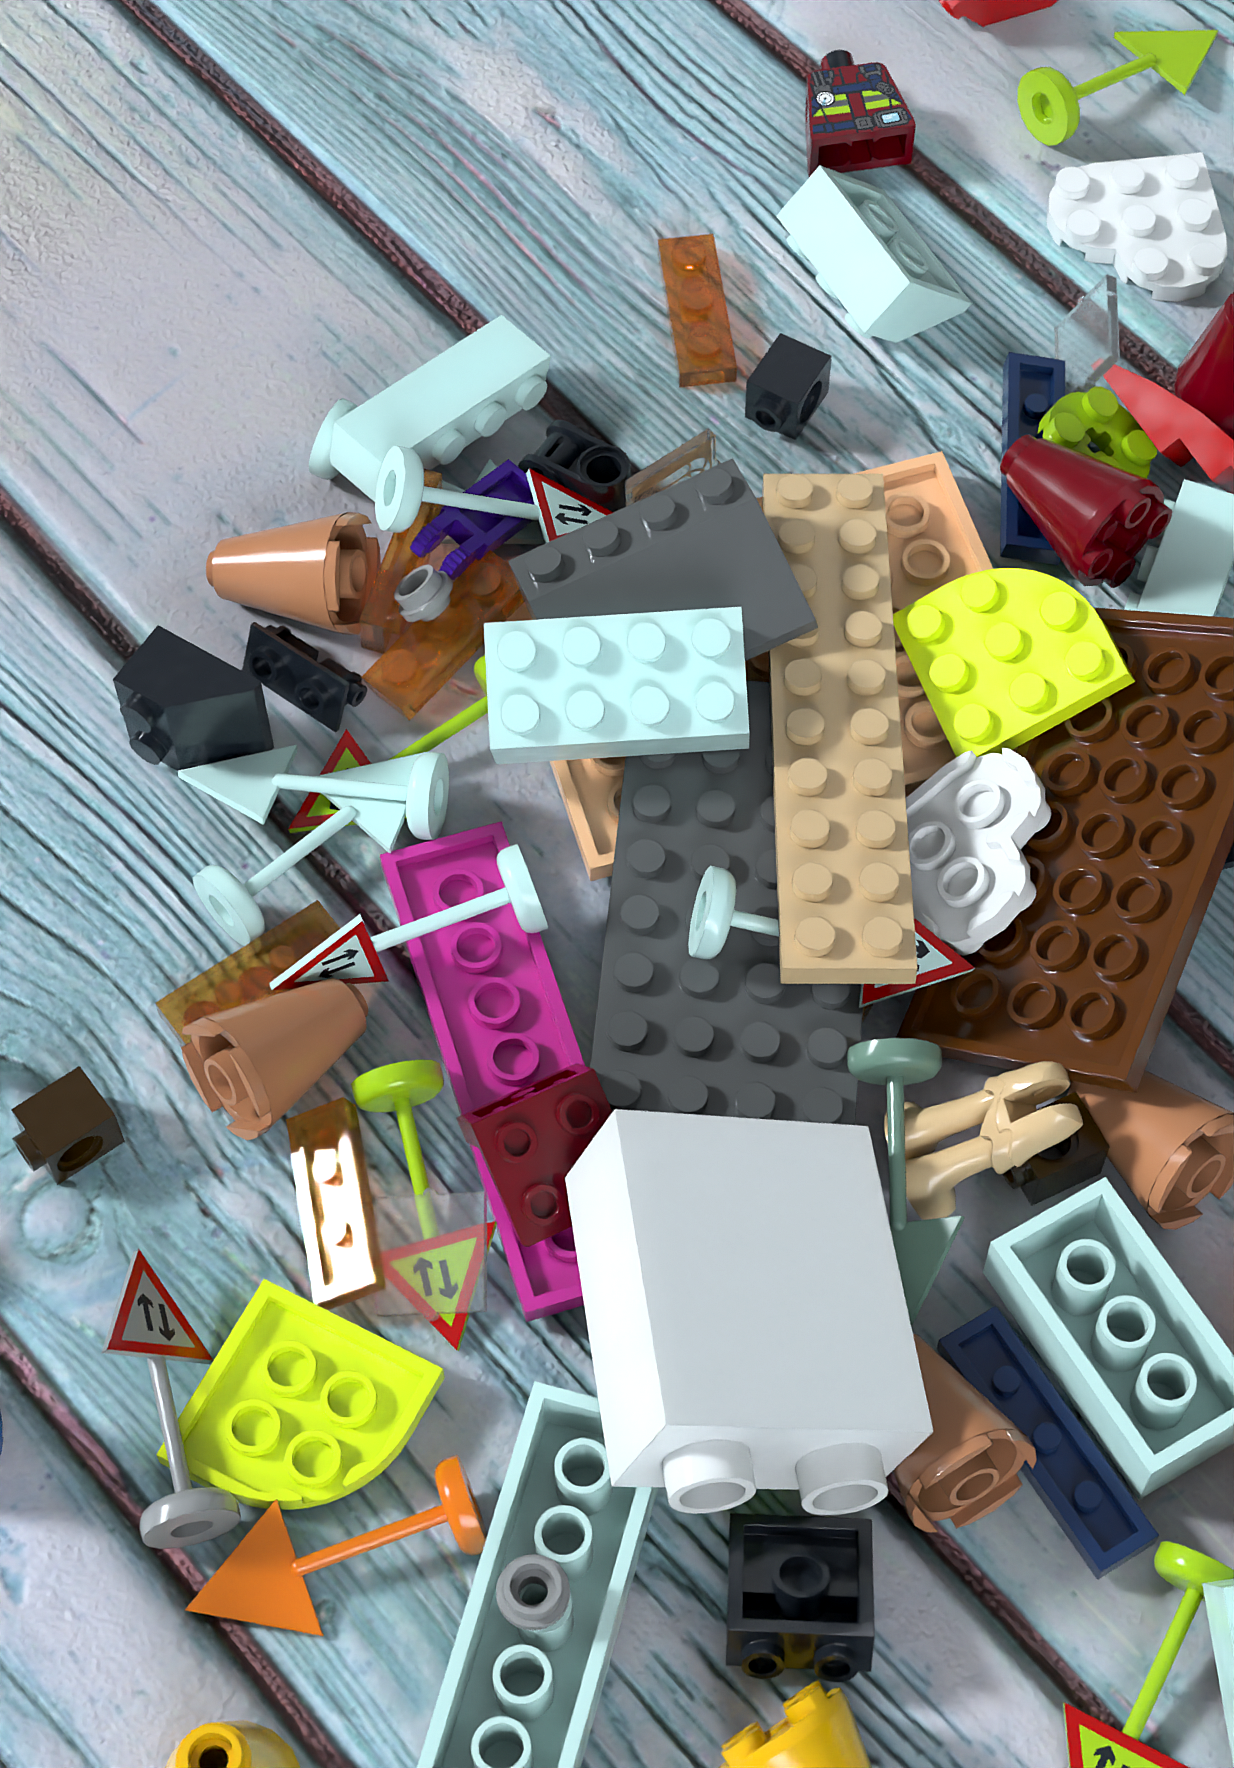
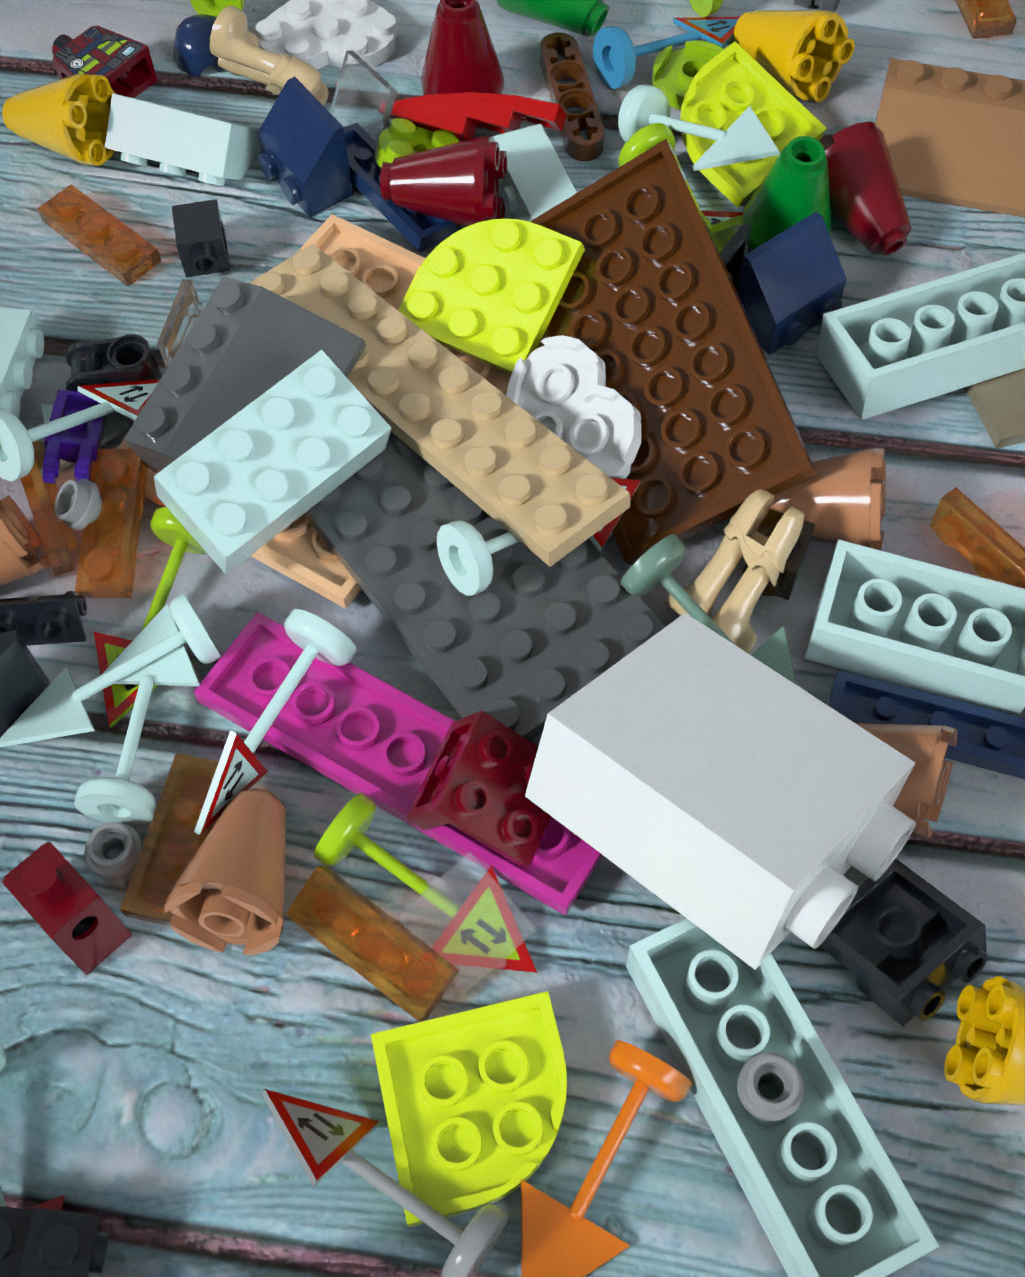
camera: 40 degrees left, 0 degrees up
(66, 1126) = (128, 1048): dark brown brick -> none
(113, 948) = (59, 900): none -> dark red torso
(193, 931) = (105, 838): none -> light grey plate
(763, 155) = (65, 117): none -> yellow cone
(969, 362) = (305, 150): none -> dark blue slope
(991, 154) = (193, 45): none -> dark blue hair
(1012, 187) = (242, 56): none -> tan piece

